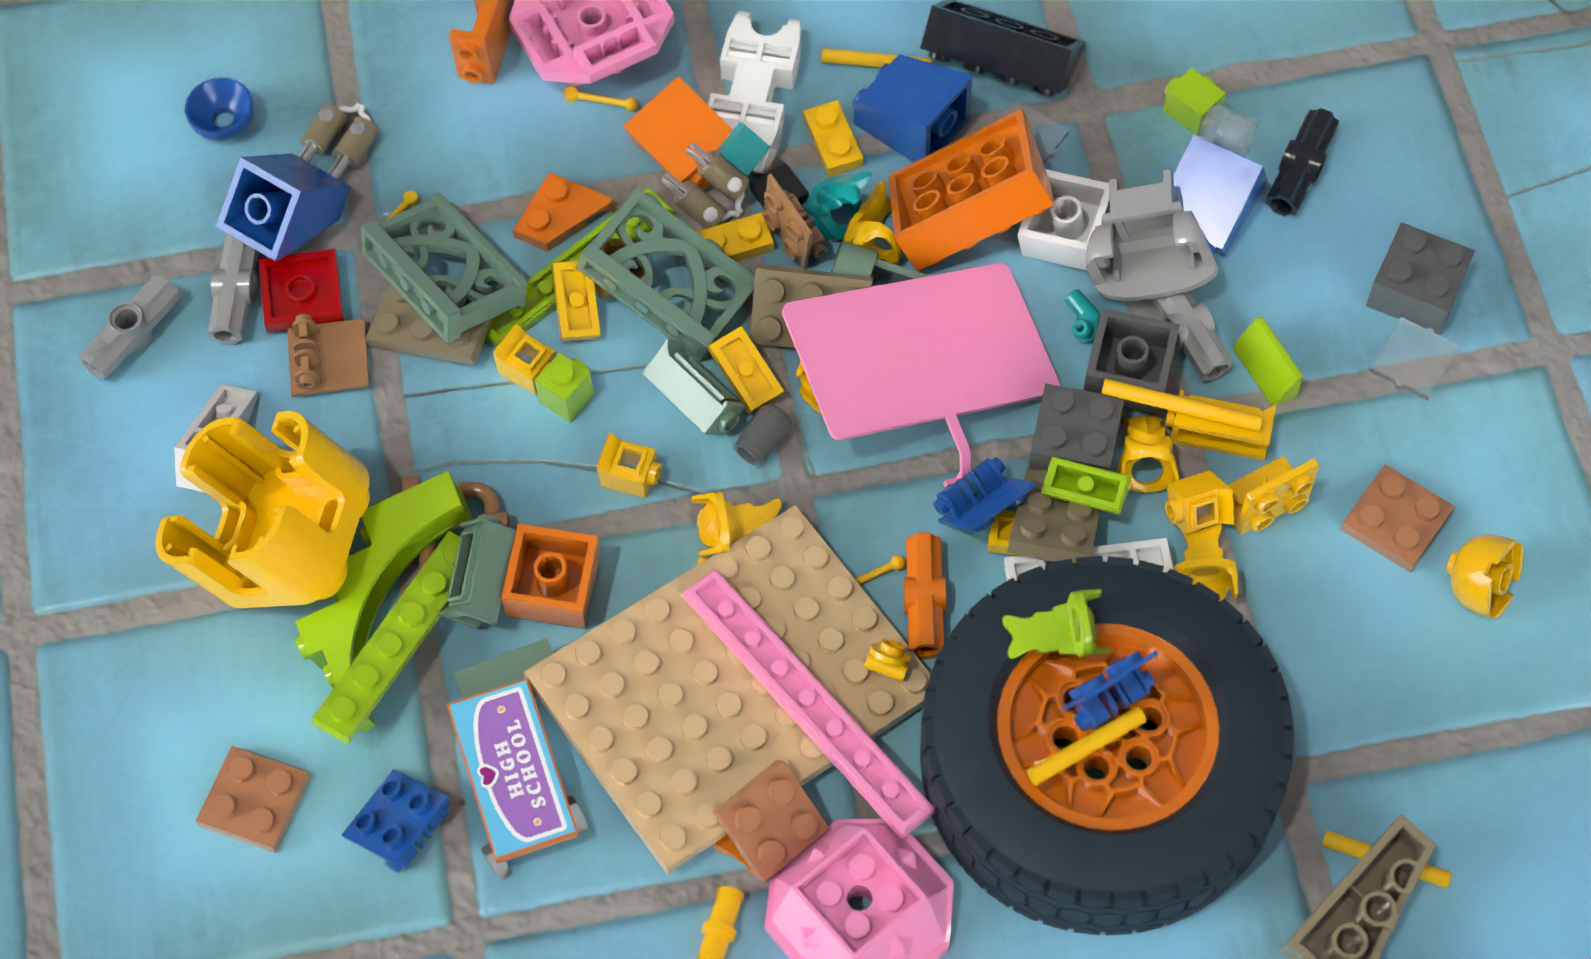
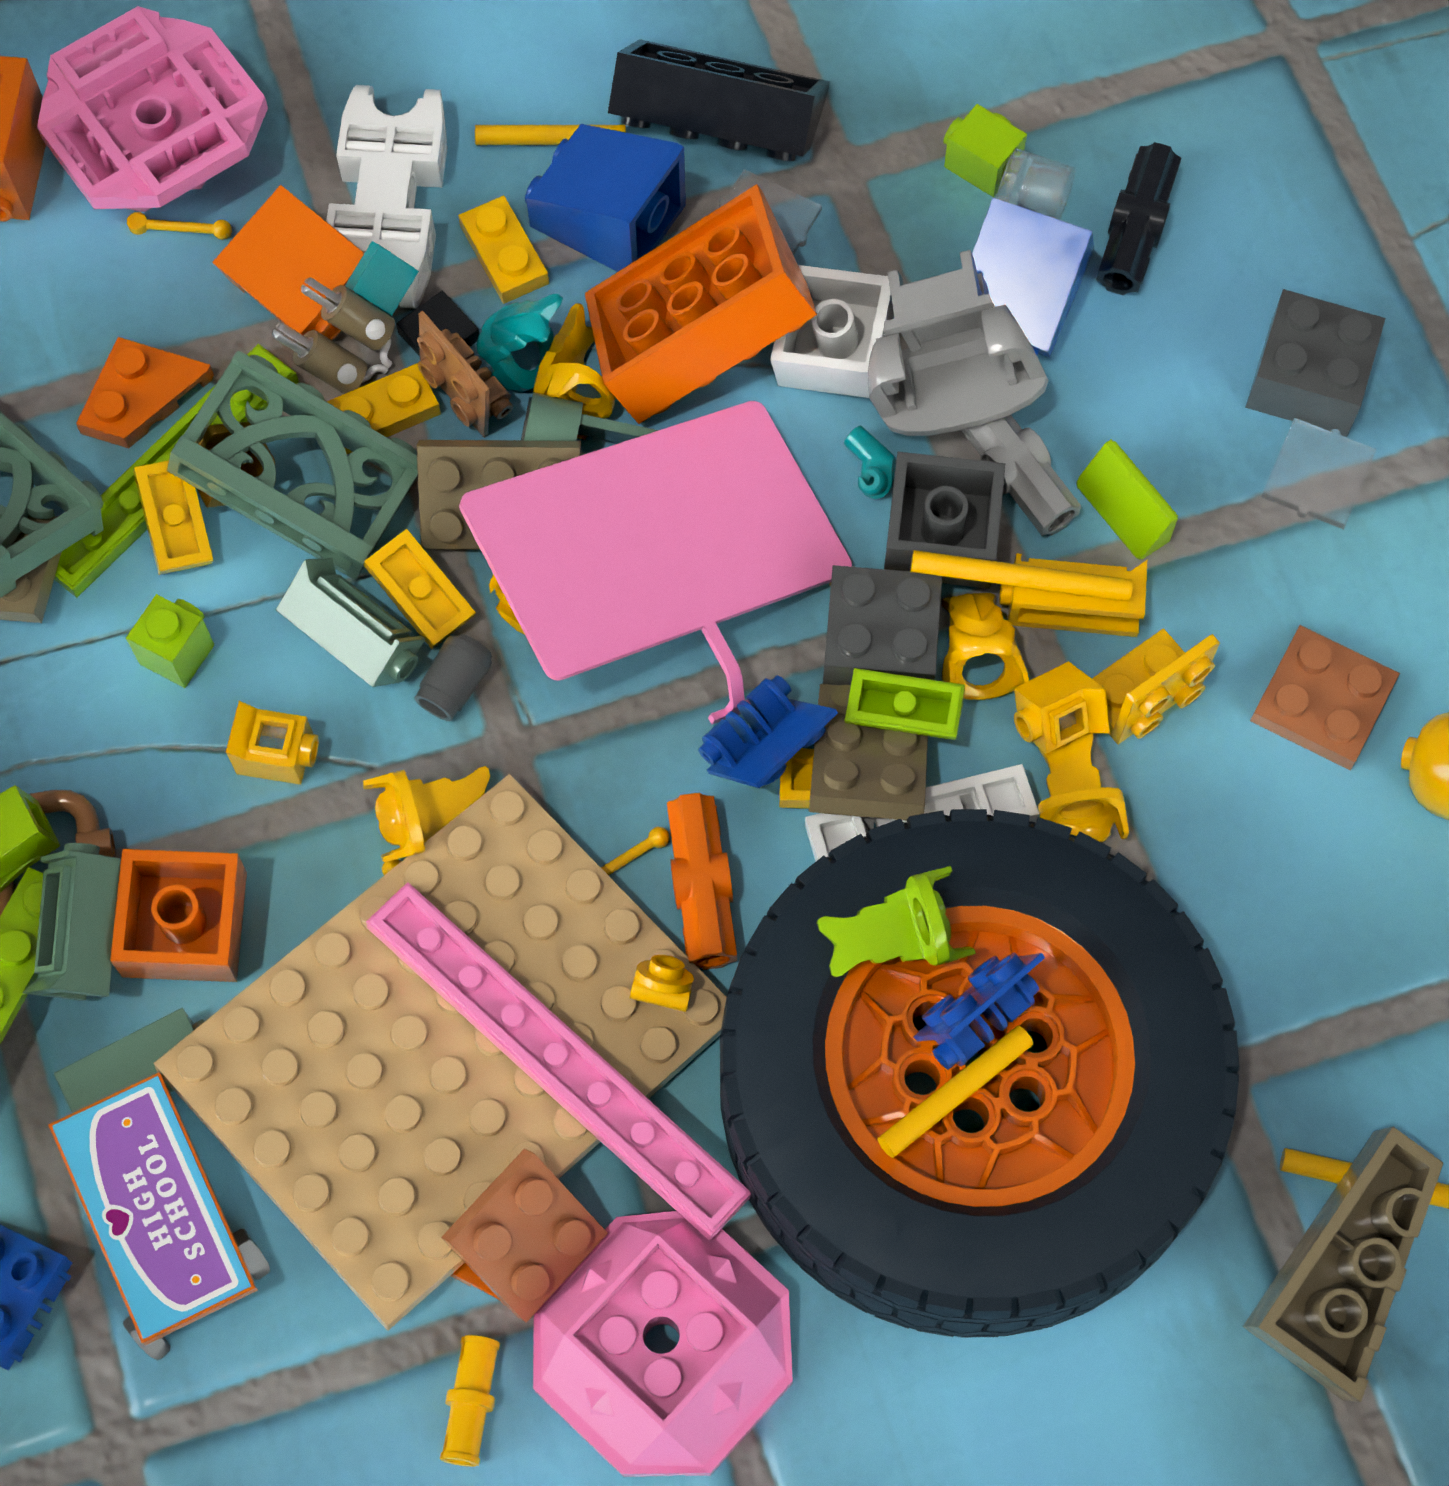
camera: 10 degrees left, 5 degrees up
(522, 358) = (107, 604): yellow window -> none

